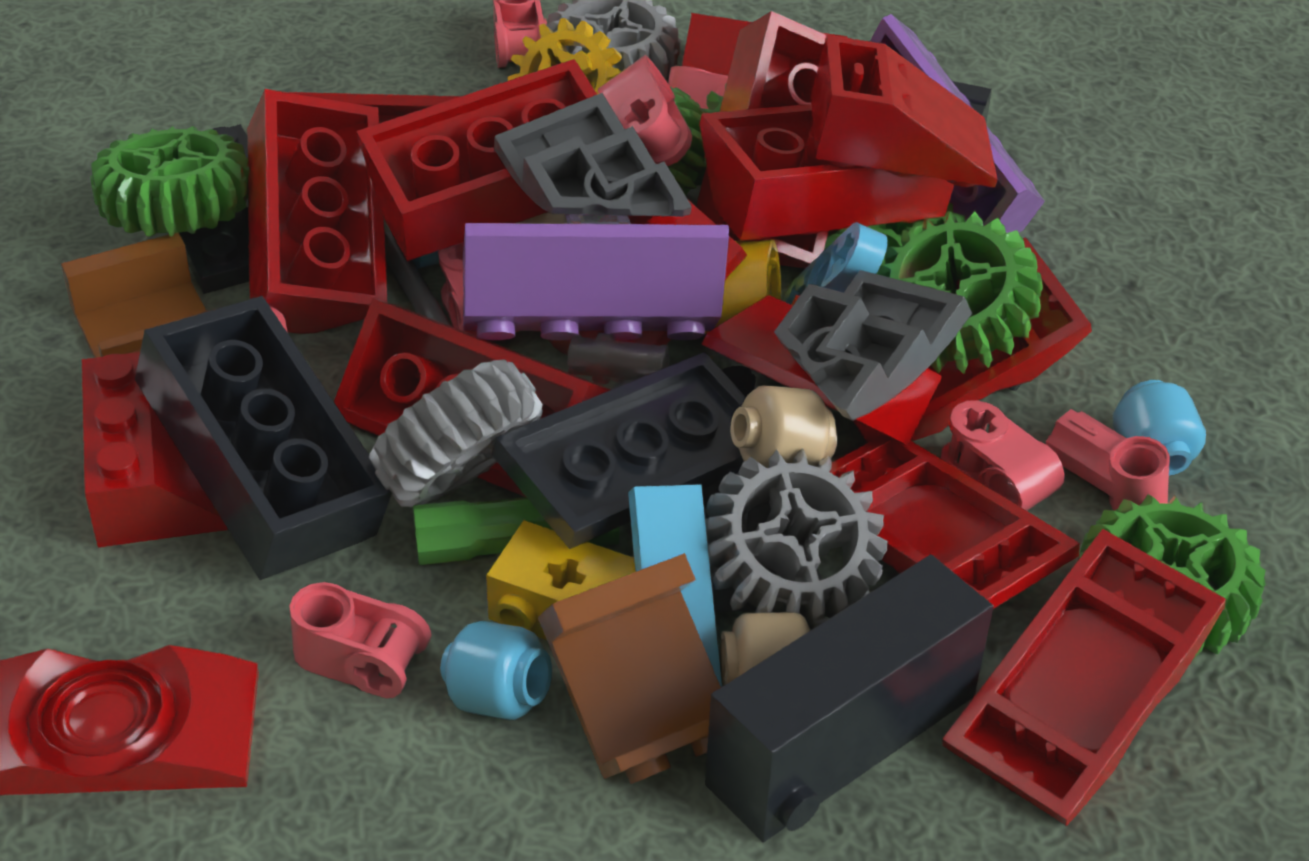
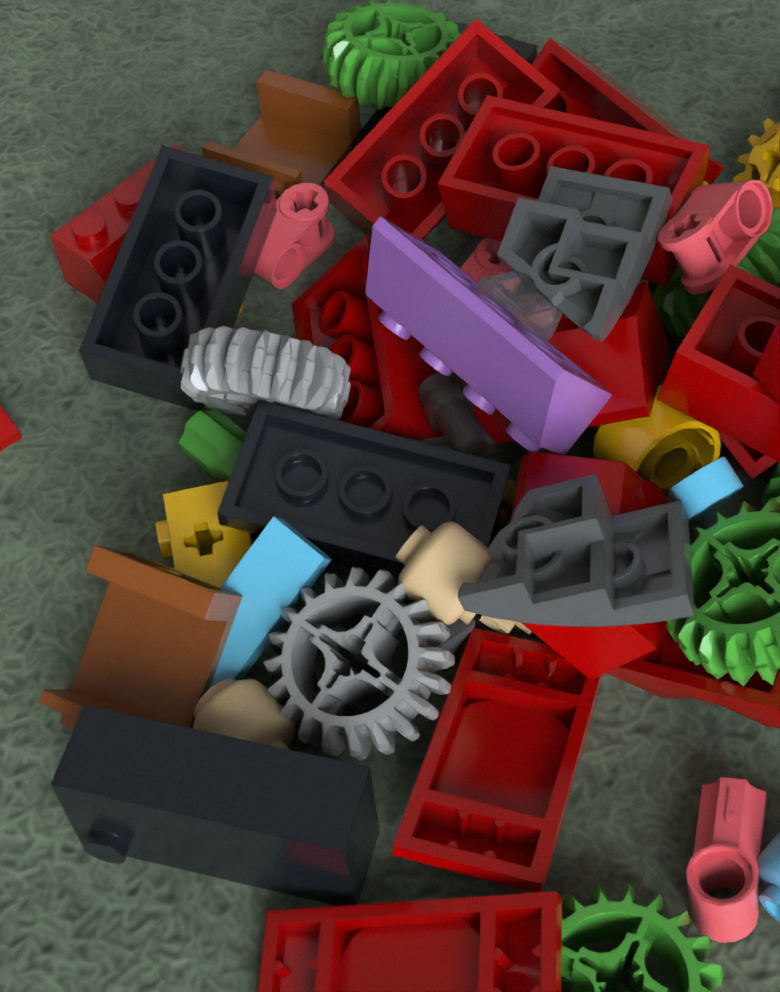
camera: 60 degrees right, 10 degrees up
(353, 638) = (67, 463): coral piece -> none
(496, 670) = (74, 553): medium azure head -> none
(1003, 458) = (639, 766): coral piece -> none

